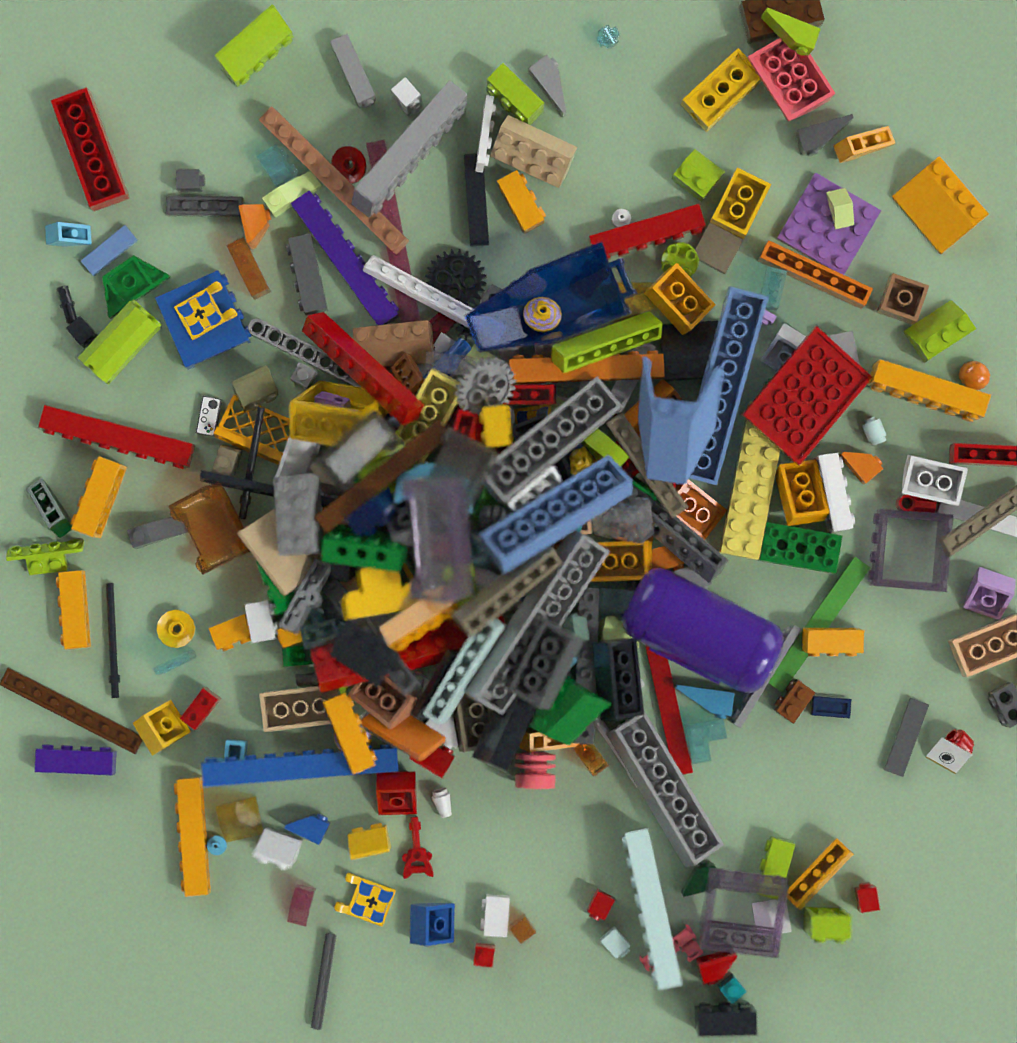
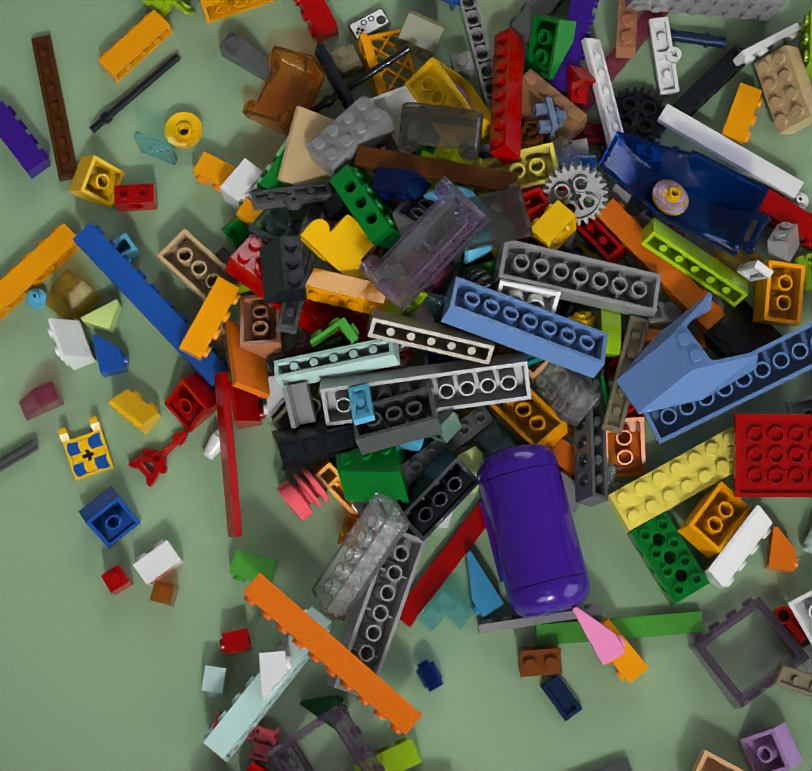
camera: 50 degrees right, 10 degrees down
(276, 807) = (104, 318): none -> yellowish green slope
(345, 297) = (548, 44): none -> green slope
(393, 301) = (577, 85): none -> red slope
(413, 356) = (552, 117): none -> sand blue hips
(426, 217) = (664, 56): none -> white hinge
(433, 178) = (698, 38): none -> dark blue pin
(449, 643) = (349, 331): none -> bright green bracket
(460, 801) = (228, 454): none -> red tile
(469, 720) = (299, 404): none -> light grey panel
(514, 680) = (361, 404): none -> medium azure plate
(542, 236) = (730, 152): none -> white tile
(557, 850) = (249, 565): none -> bright green brick
(619, 770) = (360, 556): none -> clear brick
(646, 262) = (783, 242): none -> light grey brick
(650, 304) = (754, 270): none -> white tile
(650, 900) = (273, 671): none -> white slope
(672, 848) = (332, 654): none -> orange brick
(710, 539) = (611, 473): none -> clear light blue arm
(739, 787) = (429, 675): none -> clear blue brick
(818, 647) = (602, 639): none -> bright pink slope

